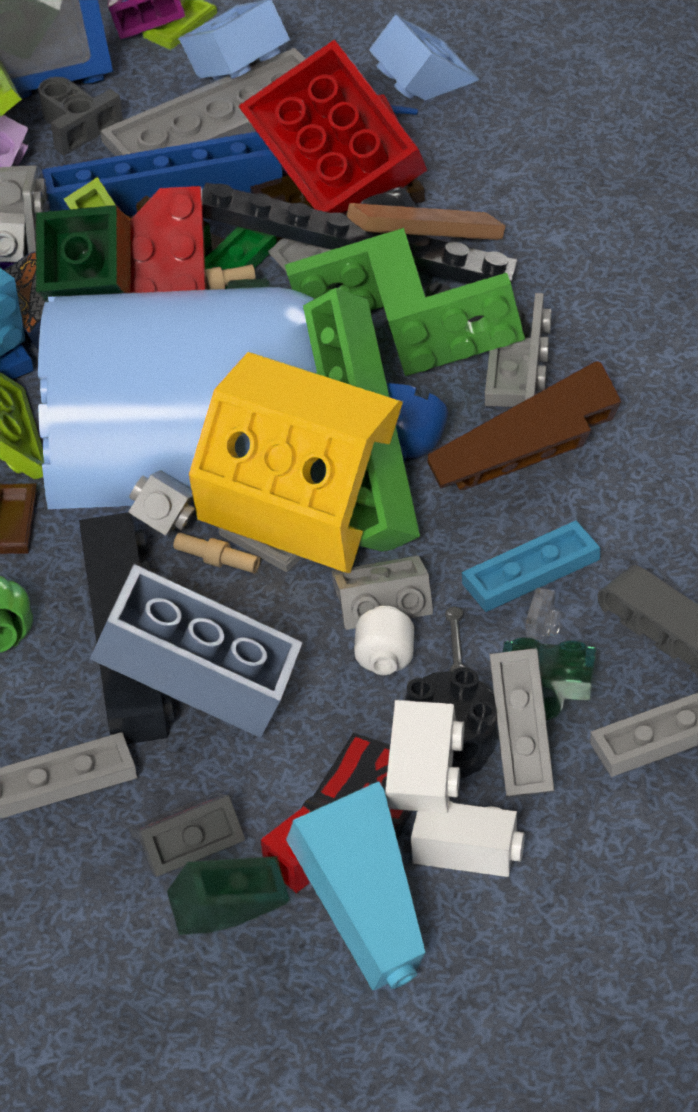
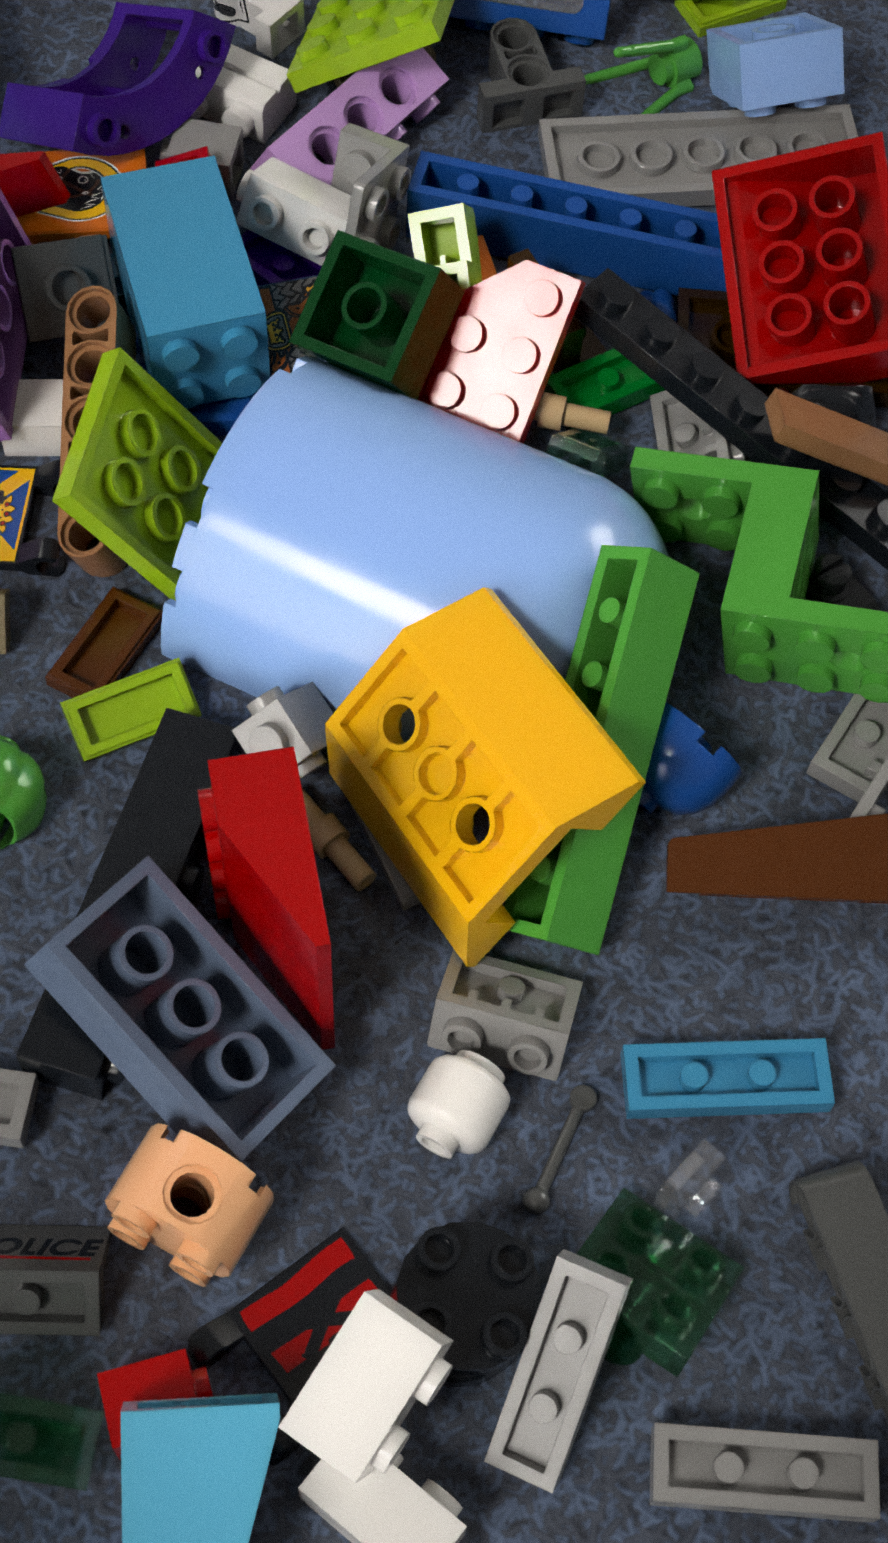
camera: 20 degrees right, 15 degrees up
(48, 540) = (127, 709): none -> lime tile
(165, 68) = (672, 63): none -> bright green plant
(218, 544) = (270, 879): none -> red slope
(259, 742) = (200, 1173): none -> light nougat brick

